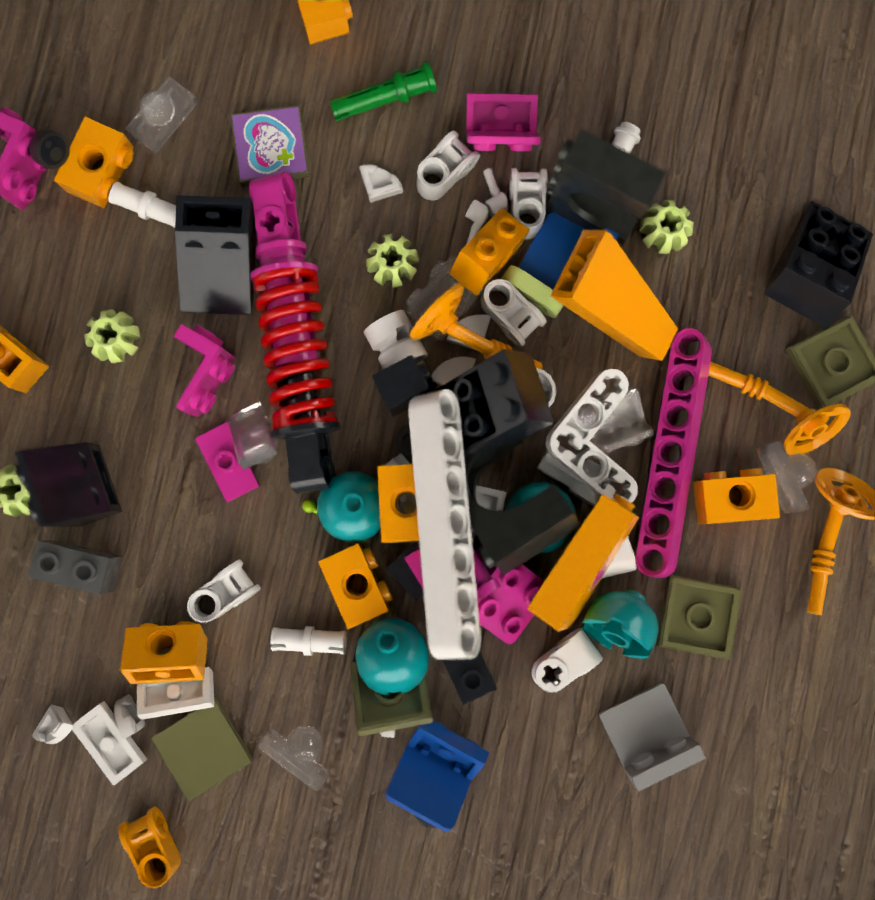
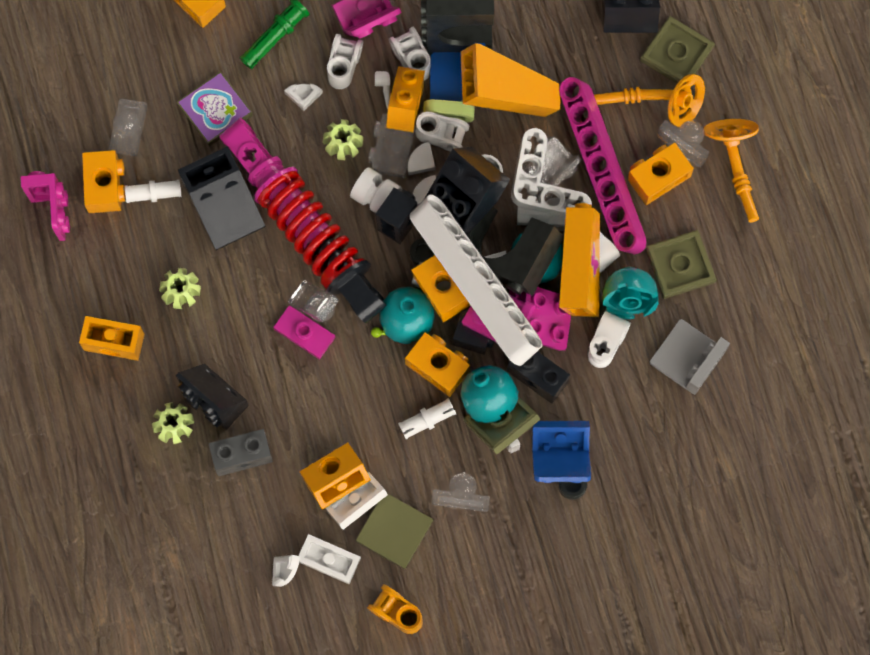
camera: 25 degrees left, 10 degrees down
(49, 148) = (74, 184): pearl dark grey tile -> none
(126, 717) = (332, 534): white tile -> none
(214, 369) = (255, 259): dark pink bracket -> none
(224, 592) = (352, 413): white piece -> none
(442, 318) = (400, 155): light orange dish -> none
(498, 198) = (391, 63): white hand -> none
(670, 217) = (514, 15): yellowish green piece -> none

